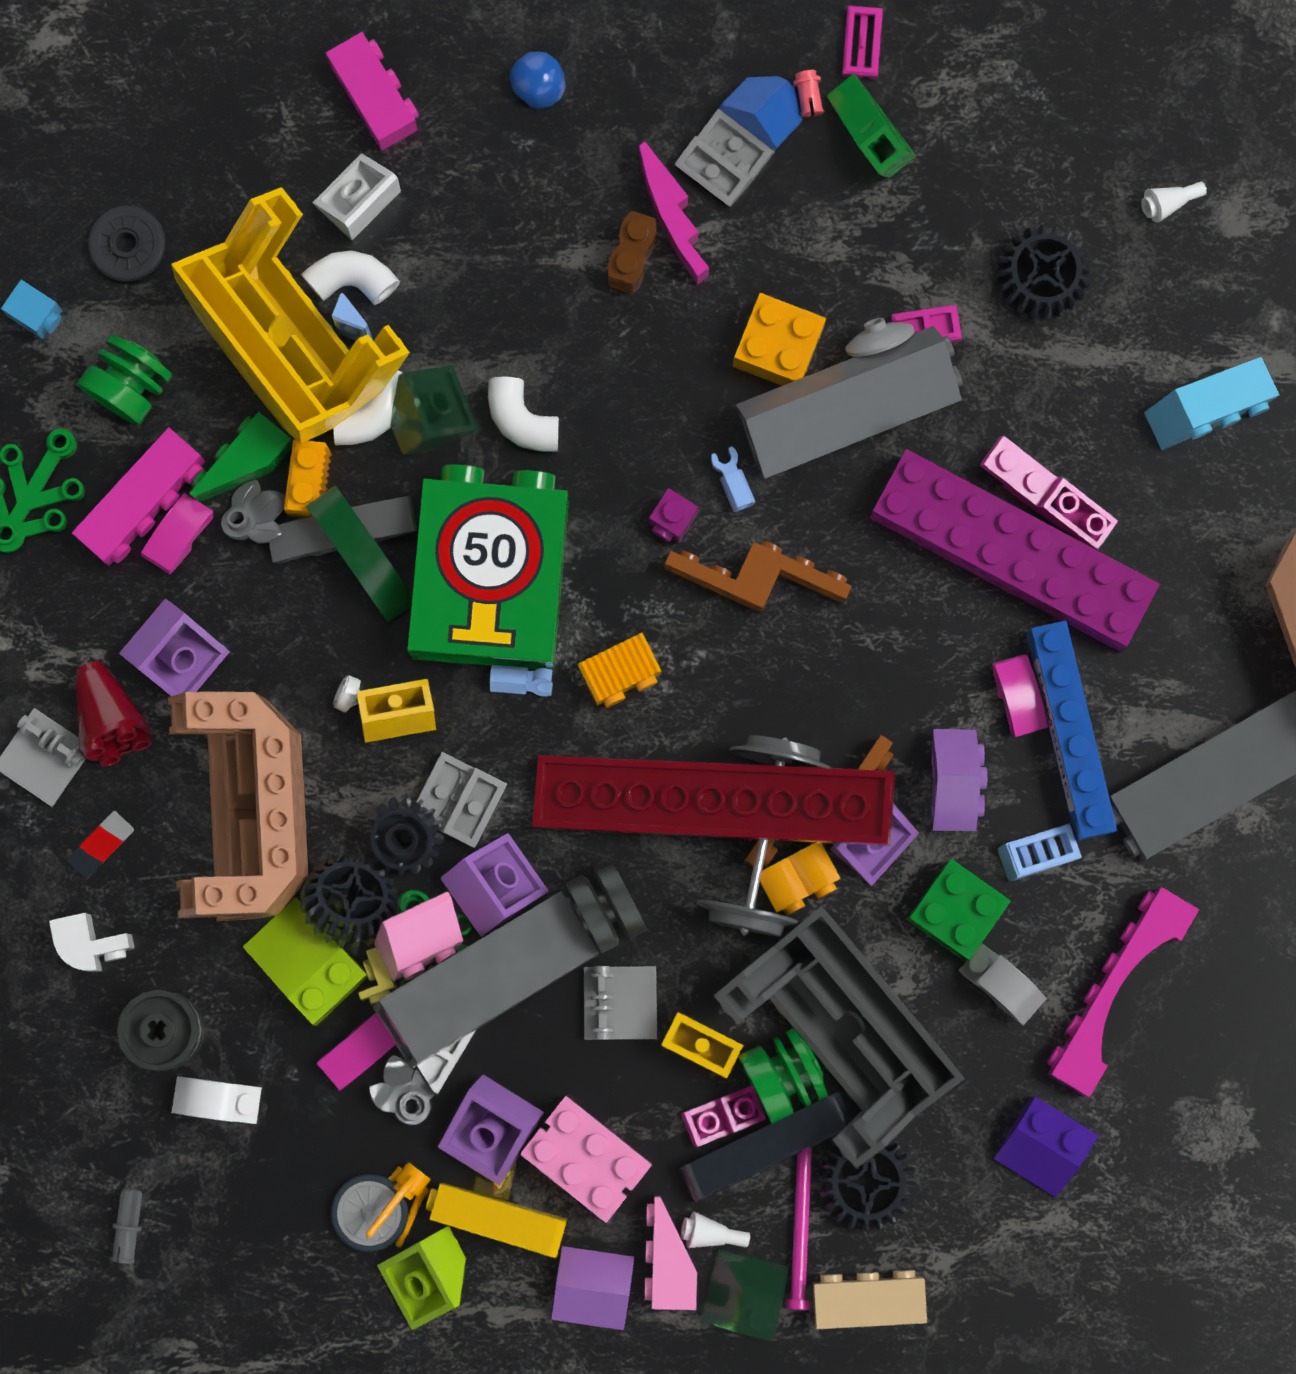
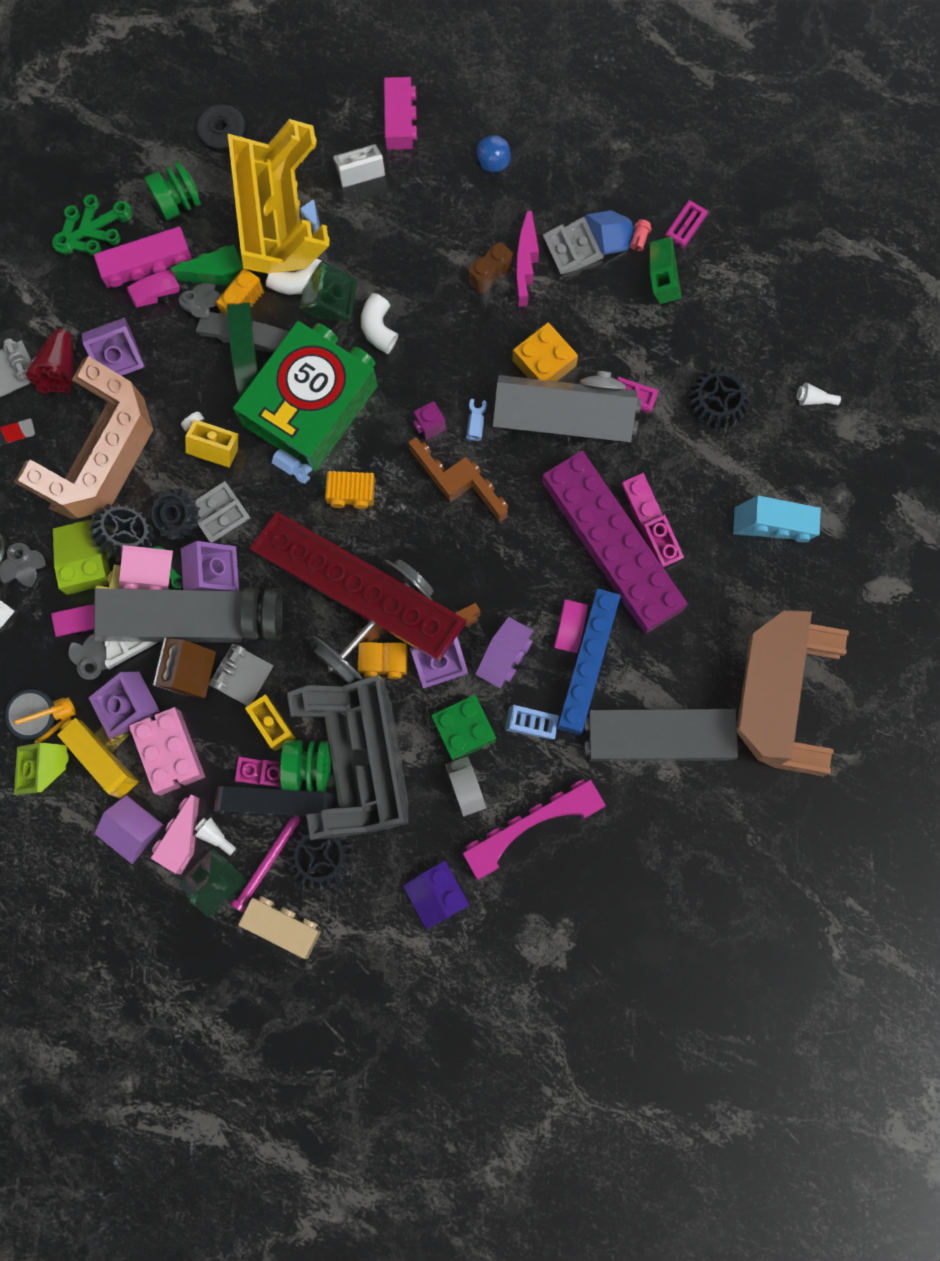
camera: 35 degrees right, 5 degrees down
(32, 310) = (148, 133): dark azure brick -> none
(235, 1023) = (23, 568): none -> flat silver plate
(351, 269) = (333, 200): white cylinder -> none
(547, 1036) = (184, 668): none -> reddish brown piece

